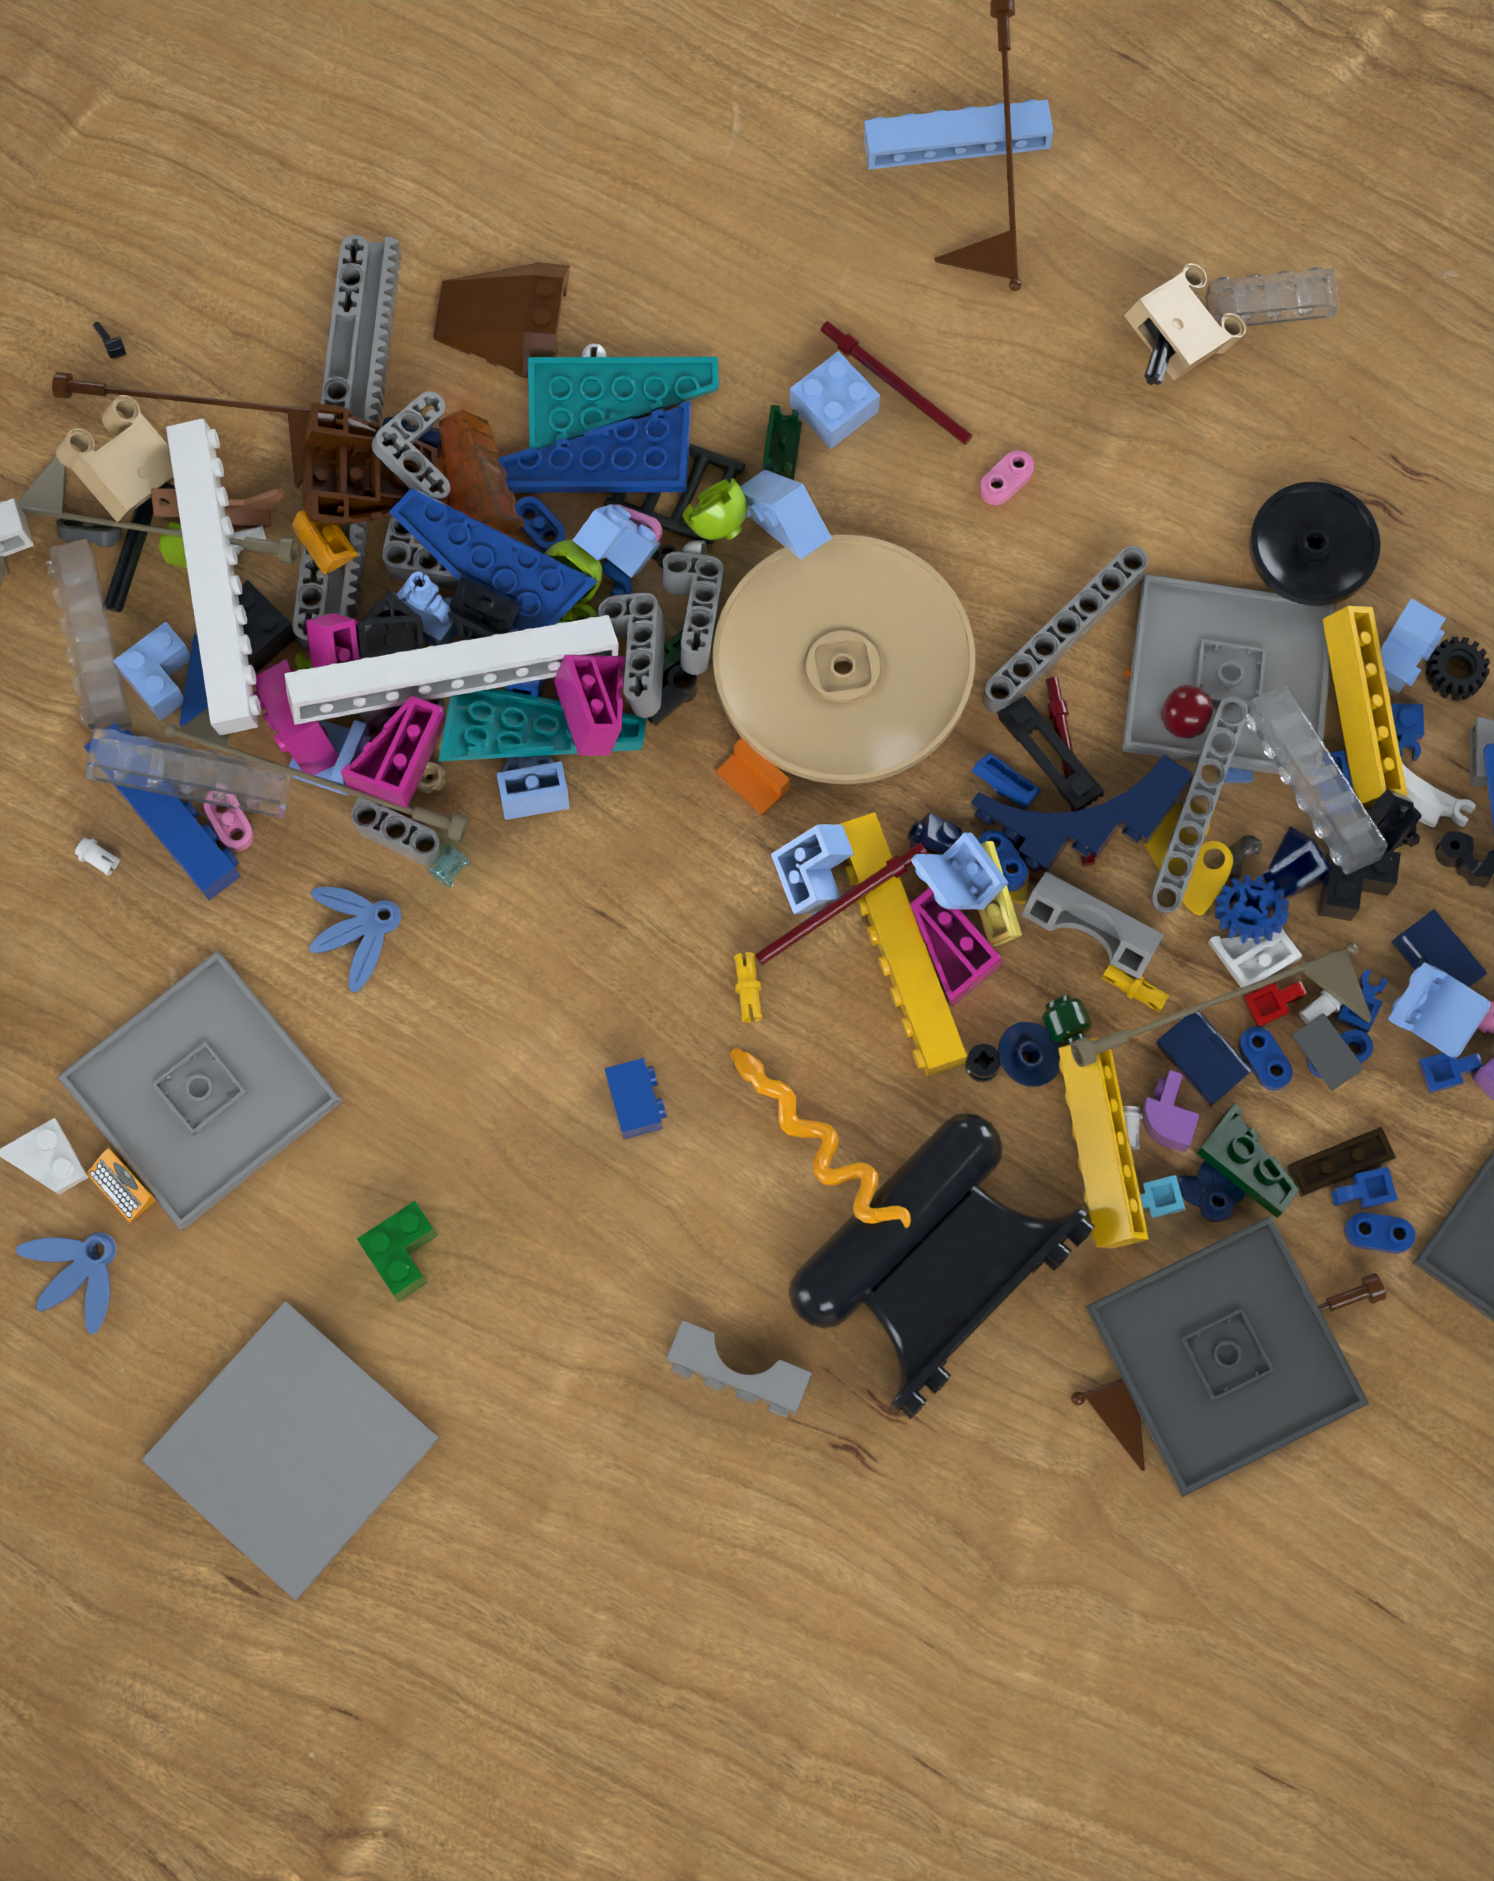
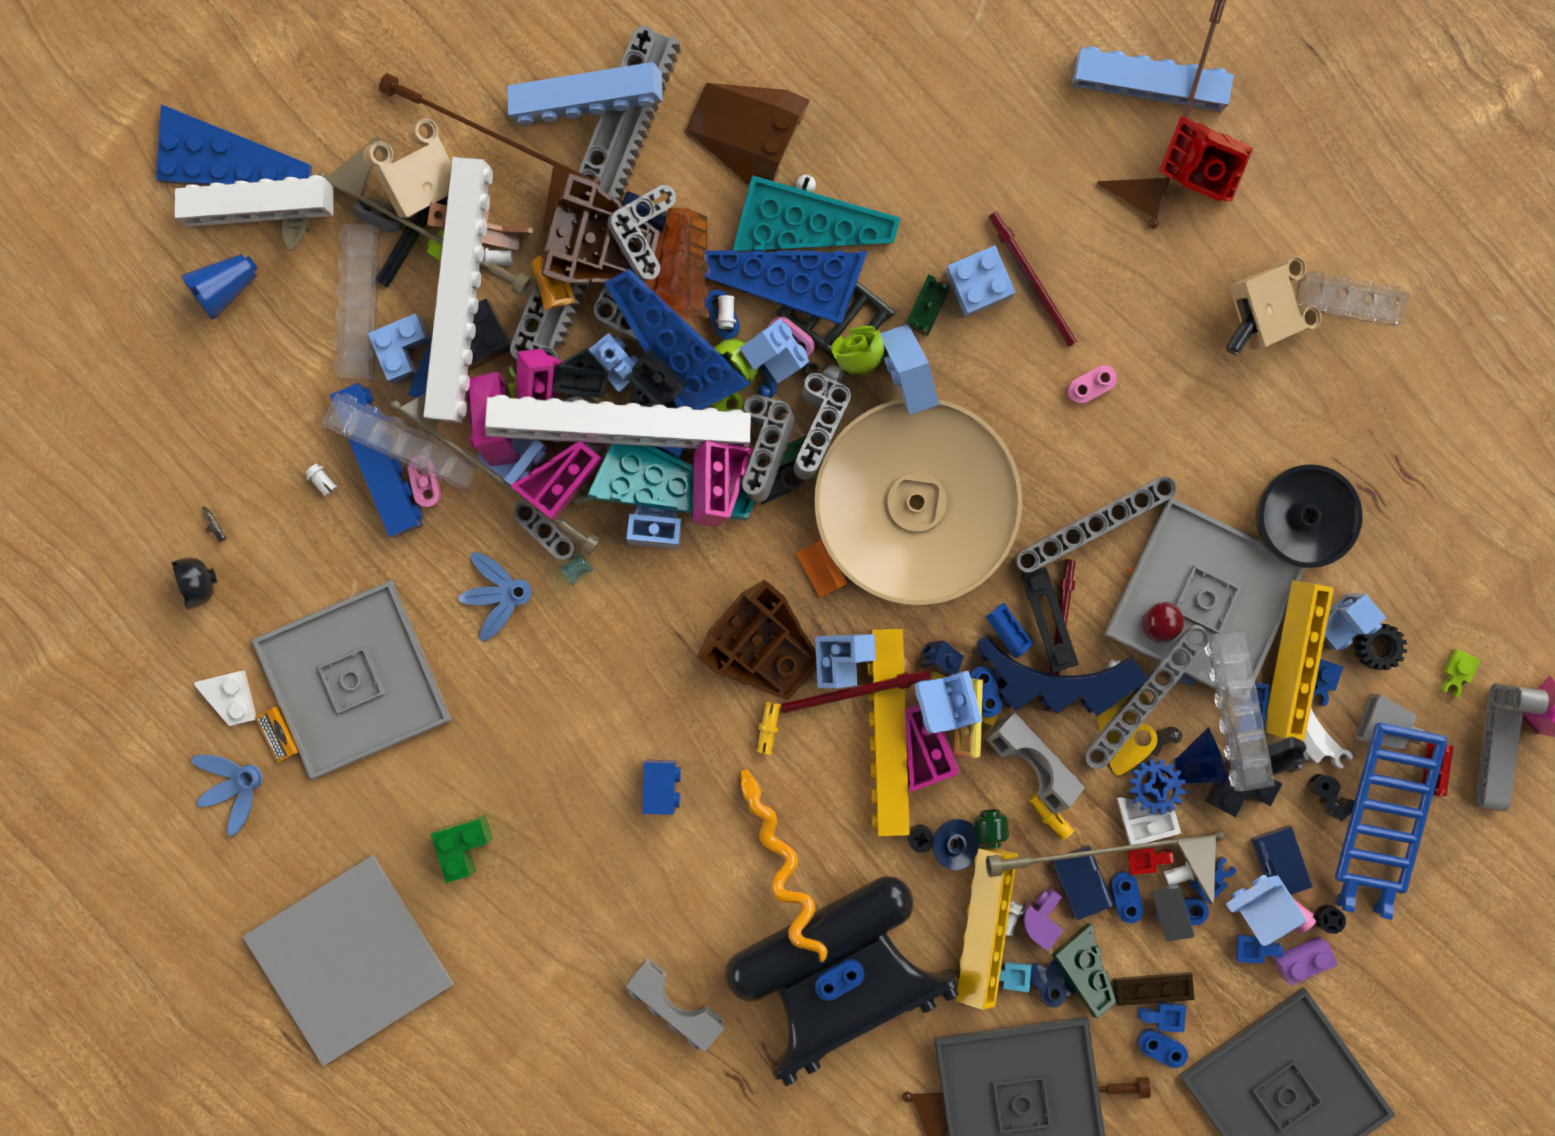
camera: 15 degrees right, 15 degrees up
(114, 346) = (437, 62): black hand -> none
(302, 323) = (585, 94): none -> light blue brick
(545, 521) = (726, 312): none -> white pin
(708, 884) = (760, 643): none -> reddish brown wedge
(938, 1255) = (837, 977): none -> blue plate
(1049, 195) = (1205, 160): none -> red slope

